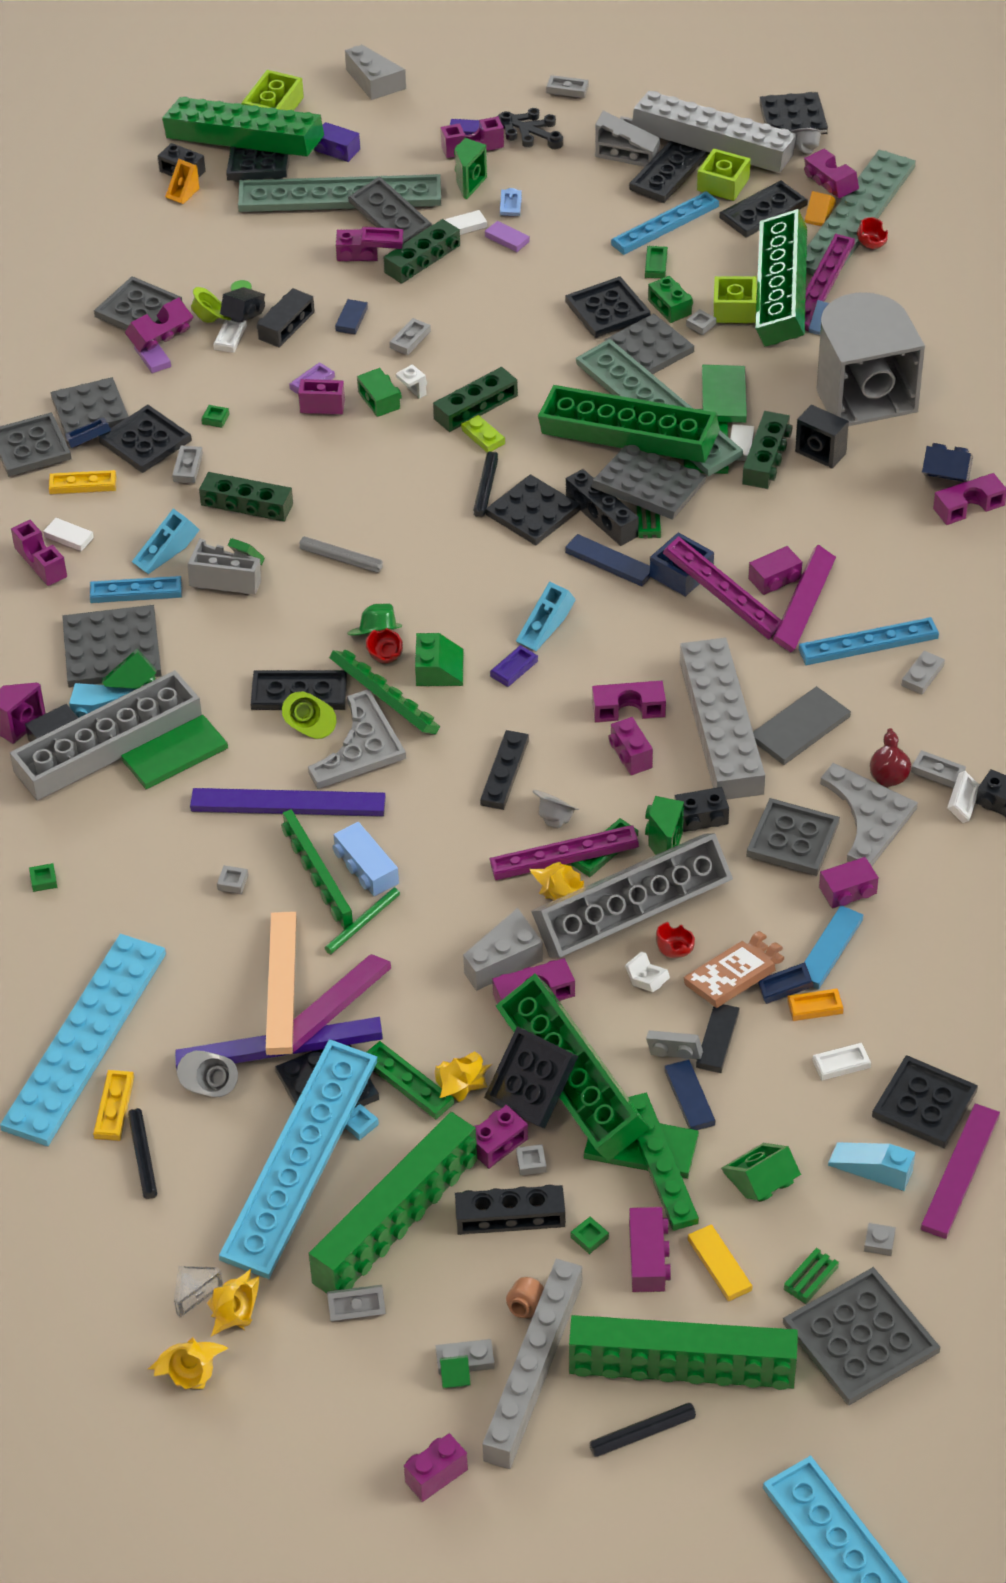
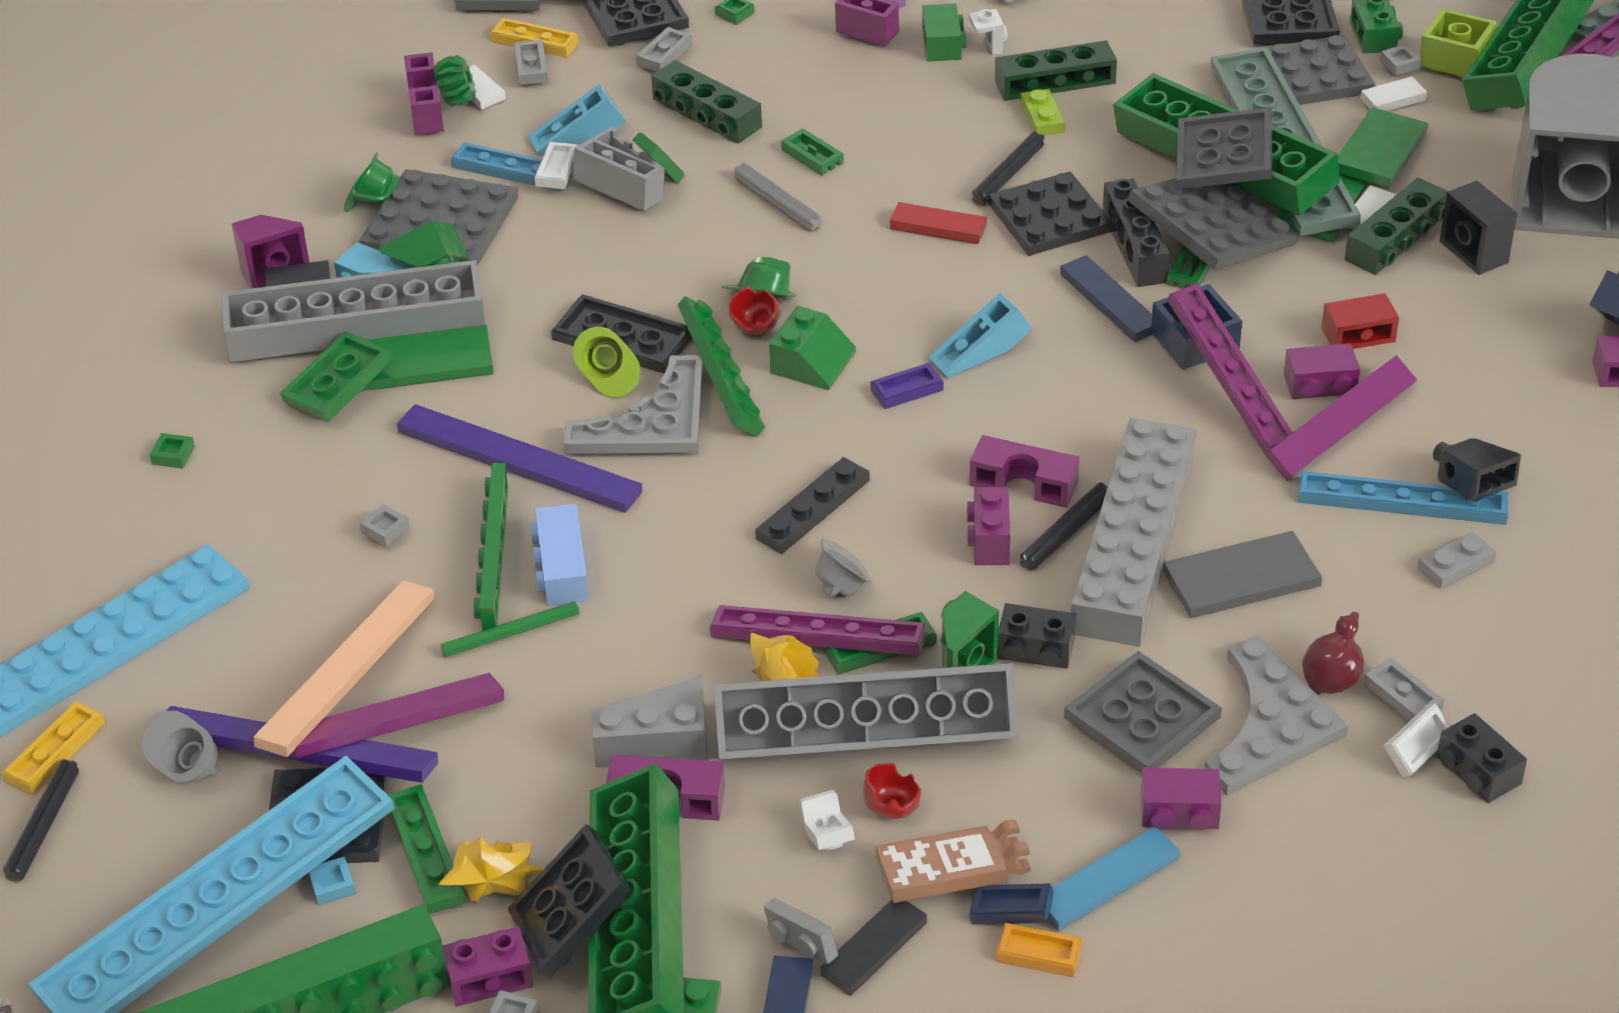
camera: 25 degrees right, 5 degrees down
(51, 633) = (373, 185): none -> green piece
(59, 535) = (454, 80): none -> green gear
(96, 503) = (531, 62): none -> light grey plate
(127, 786) = (336, 376): none -> green plate
(173, 579) = (556, 166): none -> white tile
(342, 515) = (809, 154): none -> green tile
(462, 540) = (938, 222): none -> tile
(639, 430) = (1224, 148): none -> dark grey plate
(674, 730) = (1063, 527): none -> black axle
(709, 350) = (1394, 94): none -> white tile
(780, 527) = (1360, 321): none -> red brick
(906, 607) = (1476, 467): none -> black torso

